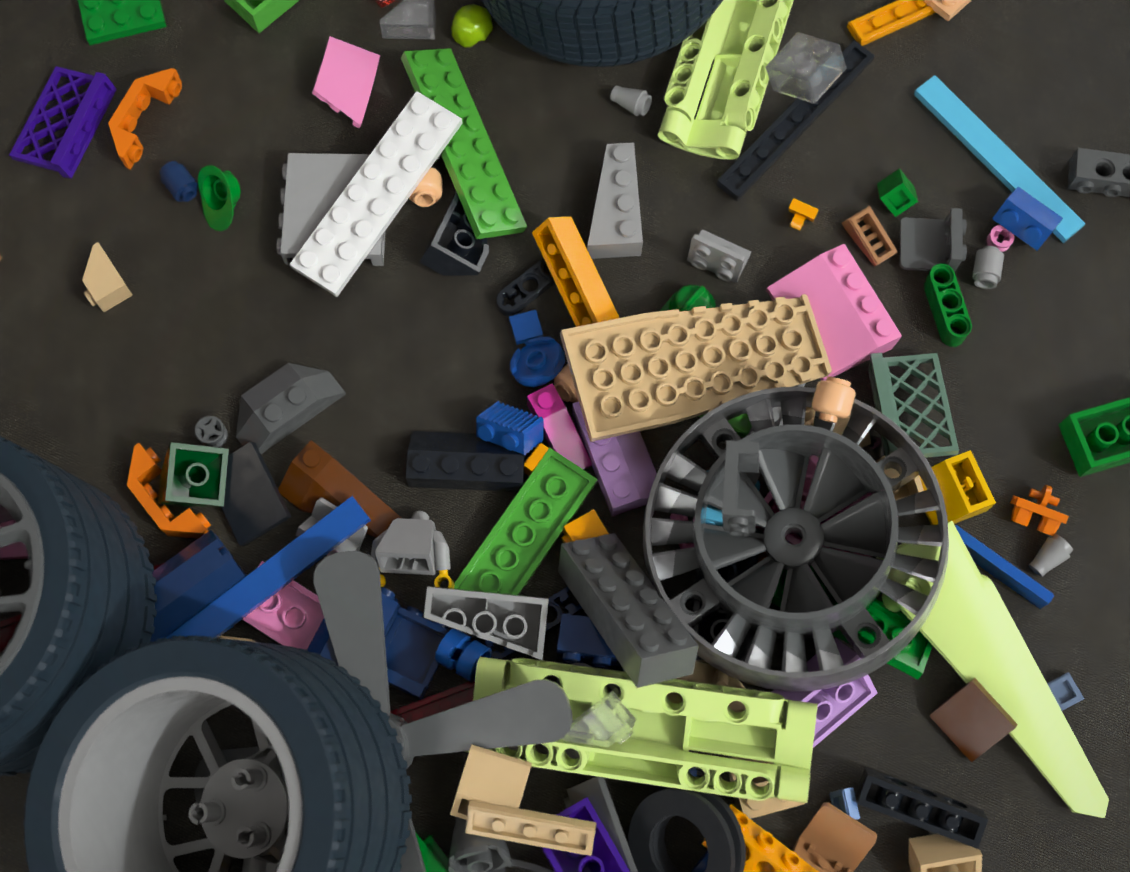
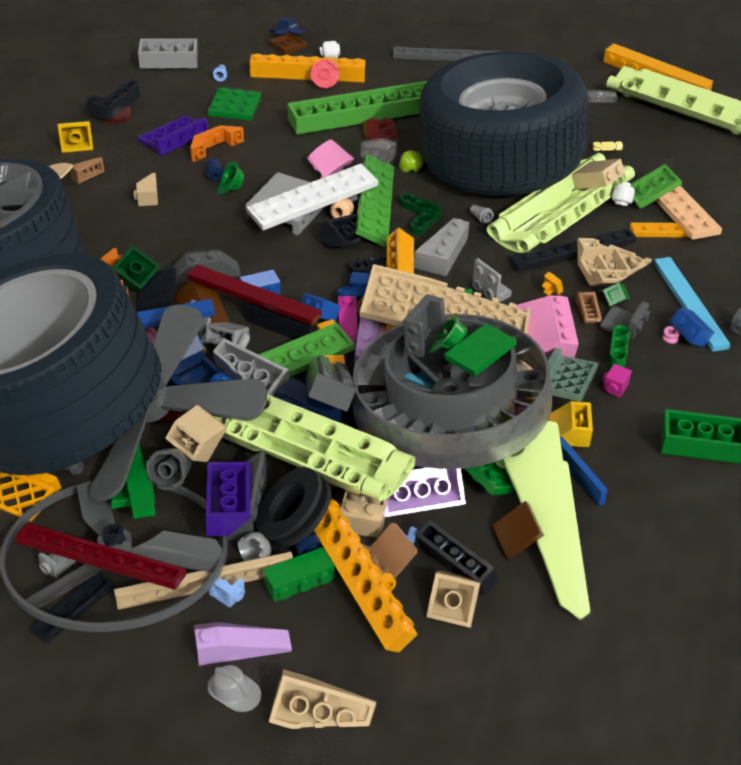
camera: 25 degrees right, 30 degrees down
(208, 427) = (159, 258): dark grey wheel -> none
(393, 411) = (266, 280): none -> brick
(409, 459) = (255, 294): none -> dark red tile
(530, 827) = (206, 453): tan tile -> none
(551, 133) = (428, 211): none -> dark green beam
(603, 723) = (281, 422): clear slope -> none
(776, 485) = (450, 335): none -> green piece
(806, 67) = (590, 225): clear brick -> none
(833, 399) = (508, 320): light nougat head -> none
(835, 492) = (480, 349): none -> green tile
(863, 139) = (606, 264): none -> tan wedge
(971, 371) = (616, 380): none -> dark pink brick
(988, 267) = (654, 341): light grey brick -> none
(1050, 518) = (625, 452): orange hips -> none
(1052, 553) = (620, 478): light grey cone -> none
(1065, 691) = (590, 547): sand blue tile -> none

